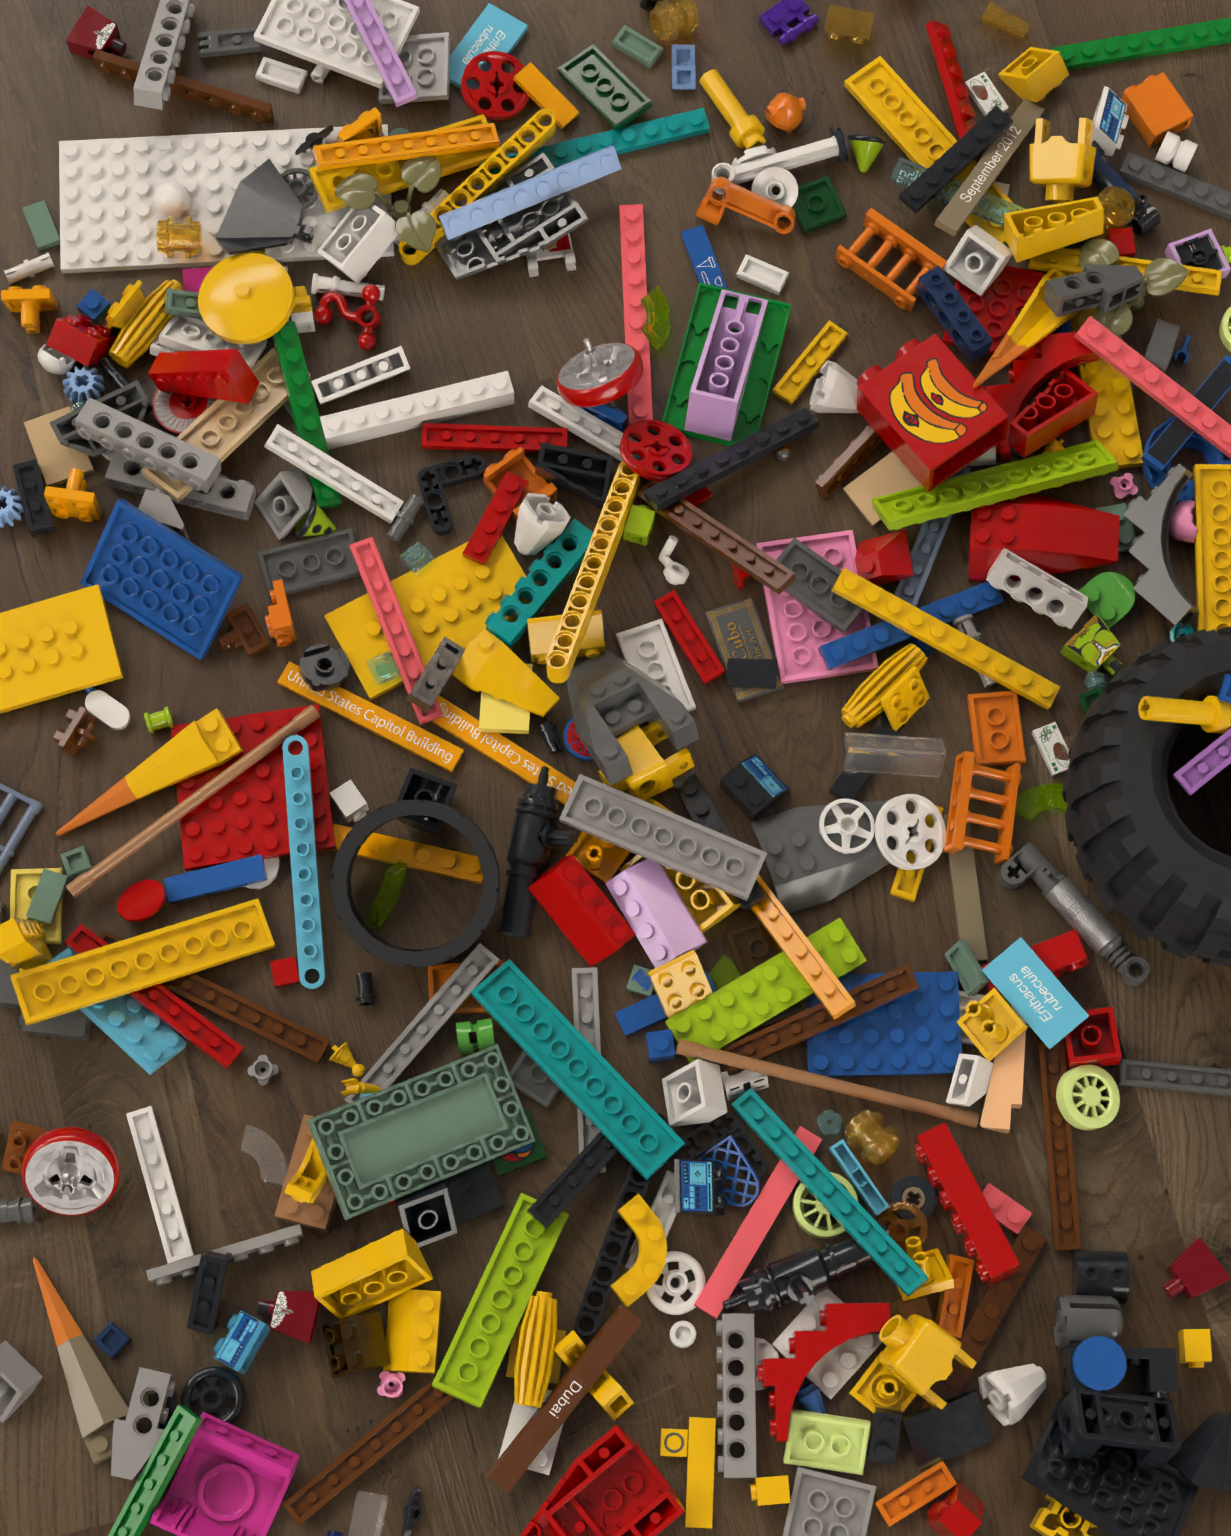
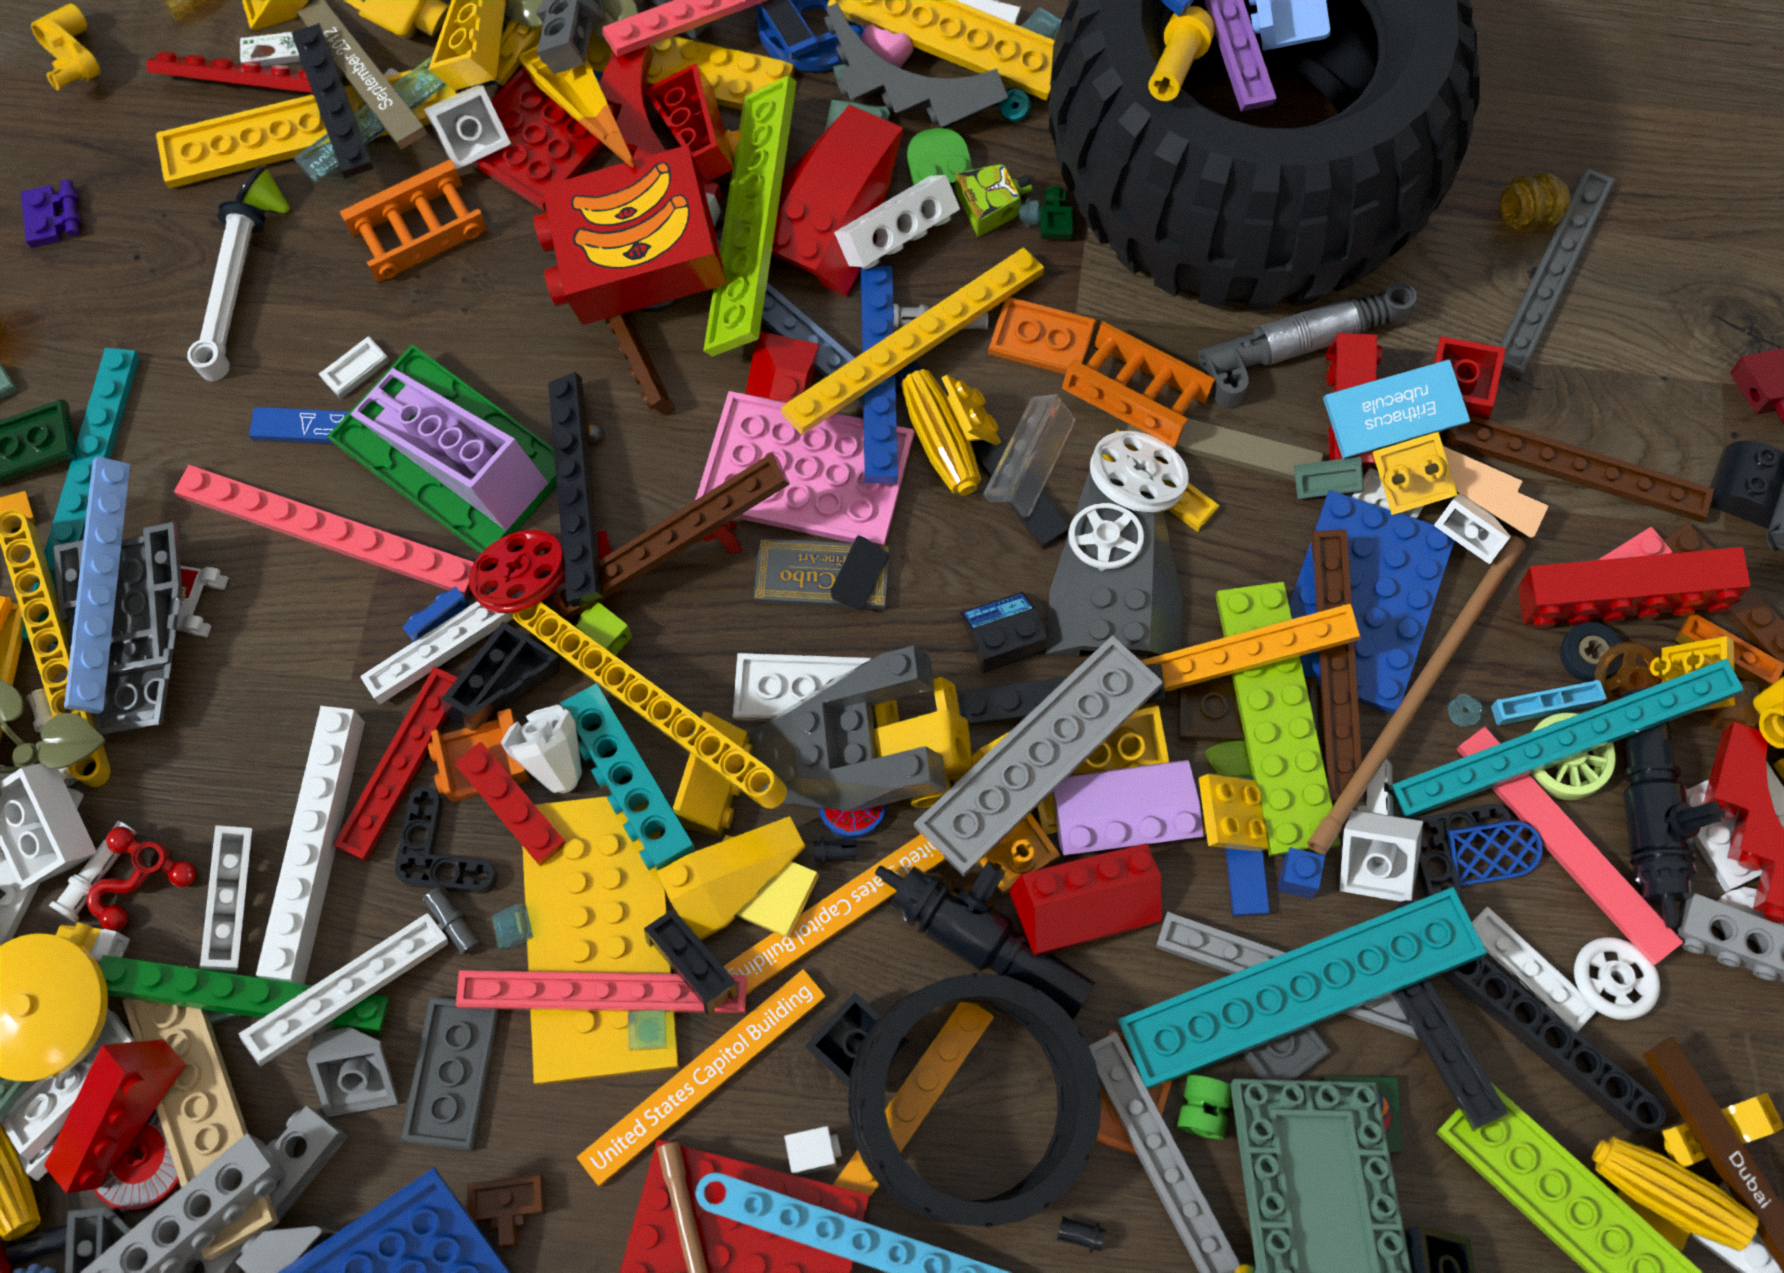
camera: 60 degrees left, 5 degrees down
(279, 619) = (517, 1144): orange plate -> none
(314, 522) = (399, 1044): hat -> none
(324, 679) = (622, 1124): black plate -> none
(388, 894) = (962, 1149): clear neon green tile -> none
(473, 1193) = (1423, 1193): black plate -> none
(599, 374) = (374, 585): wheel -> none
(640, 981) = (1202, 864): sand green tile -> none
(651, 1251) = (1582, 992): yellow plate -> none
(657, 321) = (335, 501): clear neon green tile -> none
(673, 572) = (684, 614): white plate -> none
(682, 1334) = (1684, 996): white tile -> none
(683, 67) = (39, 351): medium blue slope -> none
(689, 637) = (777, 630): red plate -> none
(699, 1187) = (1510, 894): slope -> none
(745, 129) = (161, 309): yellow piece -> none
(746, 203) = (238, 383): orange piece -> none
(754, 153) = (197, 313): white tile -> none
(778, 177) = (257, 292): white dish -> none
(785, 111) = (164, 256): orange helmet -> none
(810, 363) = (494, 359): yellow tile -> none
(814, 585) = (797, 453): dark grey plate -> none
(818, 205) = (299, 276): dark green tile -> none
(834, 391) = (546, 340): white cone -> none
(849, 24) = (96, 151): clear yellow bracket -> none
(874, 1139) = (1506, 664): clear yellow piece -> none
(881, 479) = (683, 333): tan tile -> none
(954, 314) = (515, 174): dark blue brick -> none
(1040, 799) = (1148, 316): clear neon green tile -> none
(1052, 748) = (1093, 286): white tile -> none
(1087, 1097) = (1533, 410): yellowish green wheel -> none
(1121, 492) = (813, 101): bright pink plate -> none

